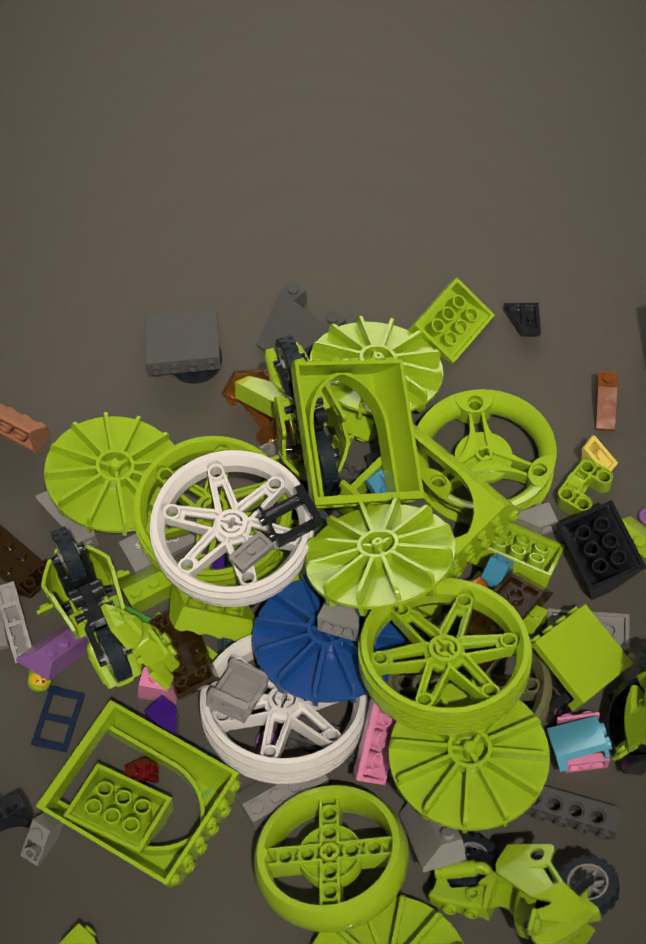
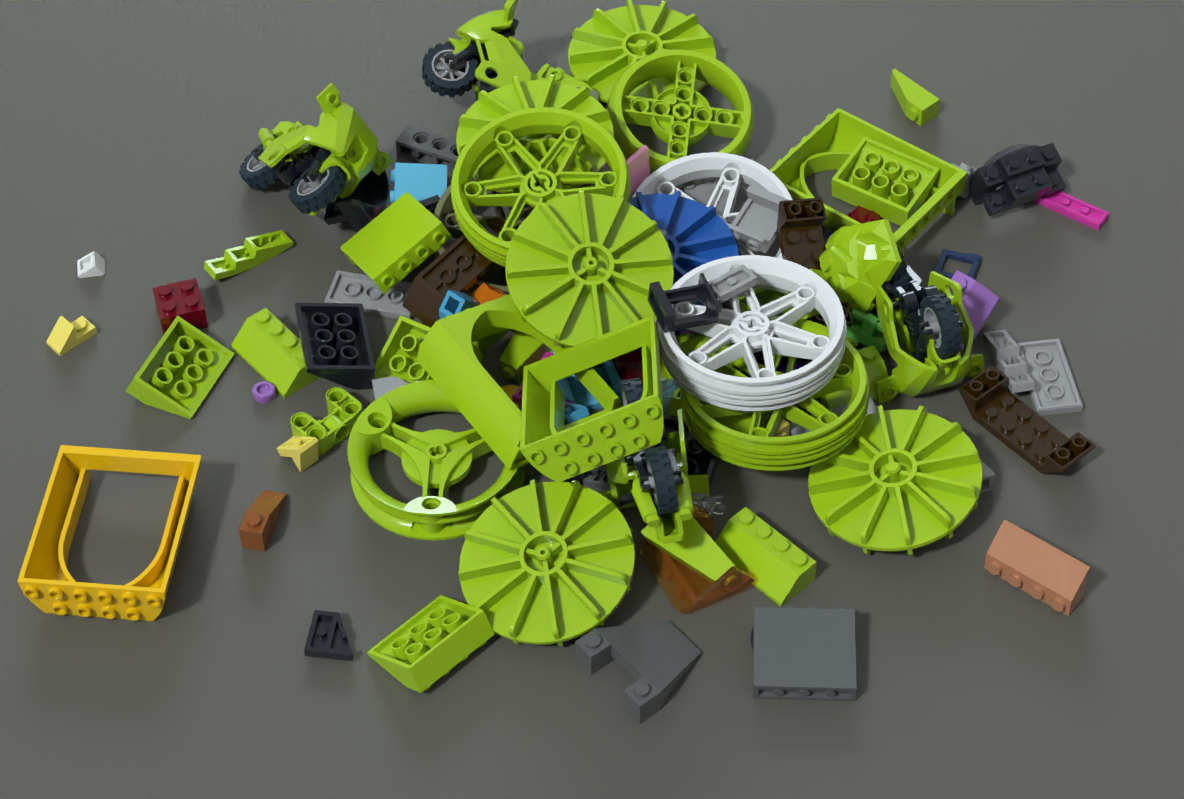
camera: 175 degrees left, 10 degrees down
(213, 414) = (771, 559): none -> lime slope

